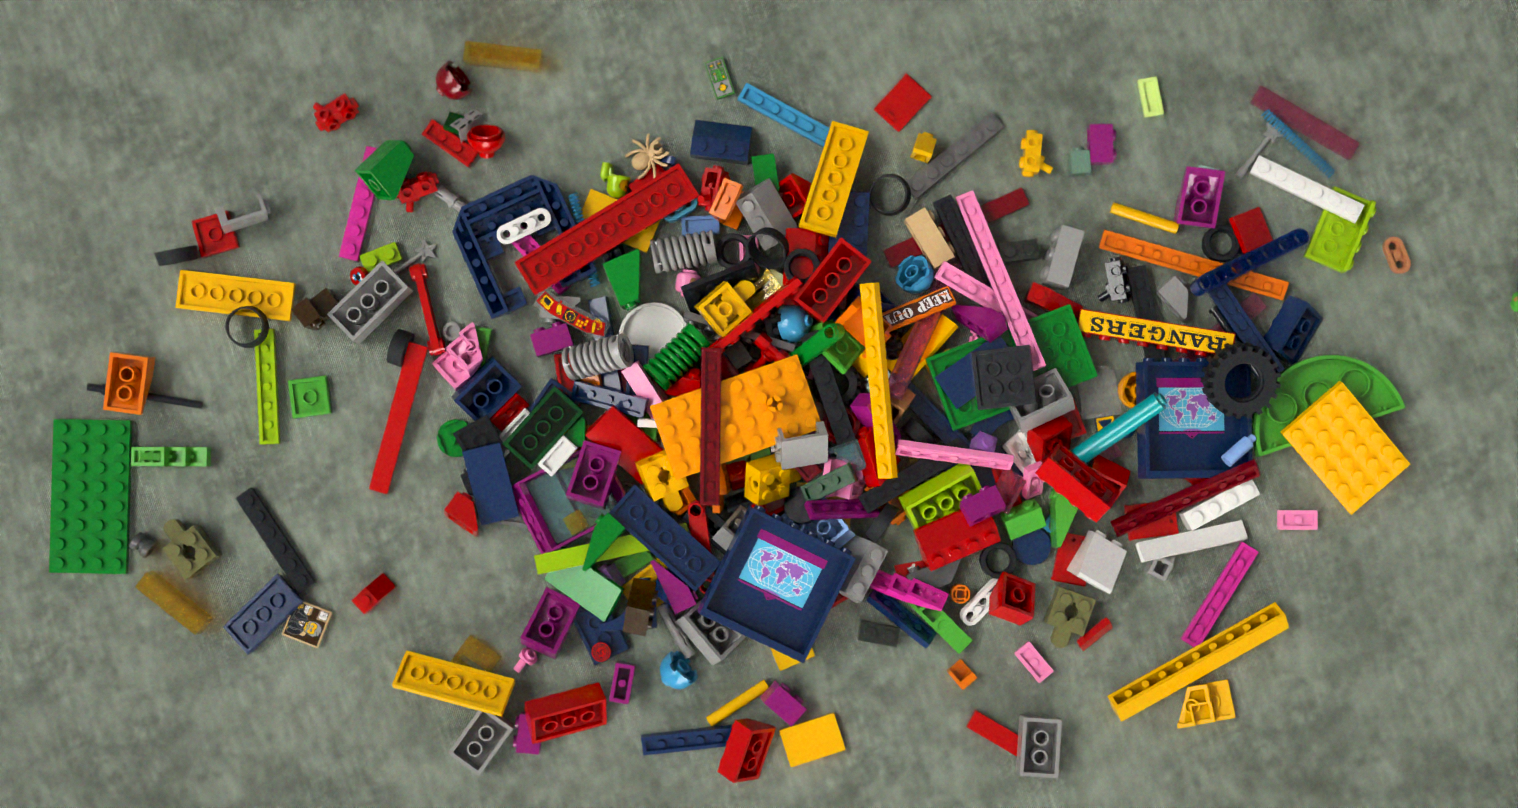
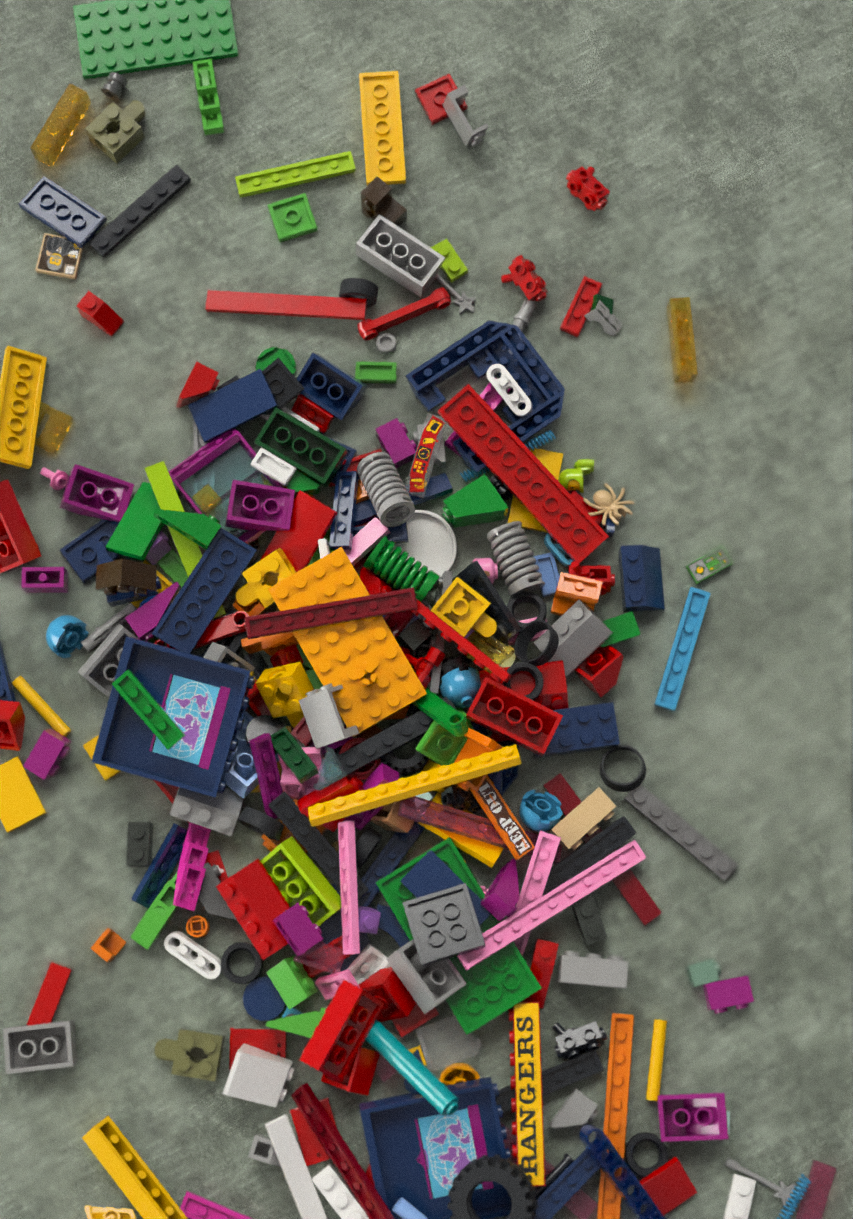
camera: 80 degrees right, 10 degrees down
(128, 382) = (275, 42): orange slope -> none
(154, 397) = (265, 28): black bar -> none
(177, 255) = (411, 63): black tyre -> none
(264, 332) = (357, 158): black tyre -> none
(358, 218) = (500, 232): dark pink plate -> none
(358, 274) = (428, 239): red tile -> none
(386, 169) = (540, 244): green slope -> none
(452, 82) = (645, 295): dark red cylinder -> none
(461, 358) = (359, 356): bright pink slope -> none
(486, 139) = (591, 338): red piece -> none
(601, 651) = (74, 552): red tile -> none
(768, 604) = (148, 709): none -> green plate
(833, 179) = (625, 701): yellow plate -> none
(902, 102) = (726, 765): red container -> none
(923, 147) = (682, 795): yellow slope -> none
(1013, 599) = (200, 986): red slope -> none
(1032, 158) = (694, 918): yellow brick -> none
(1033, 662) = (134, 1024): bright pink plate -> none
(1094, 634) = (176, 1088): red tile -> none
(1150, 97) = (794, 1042): yellowish green tile -> none

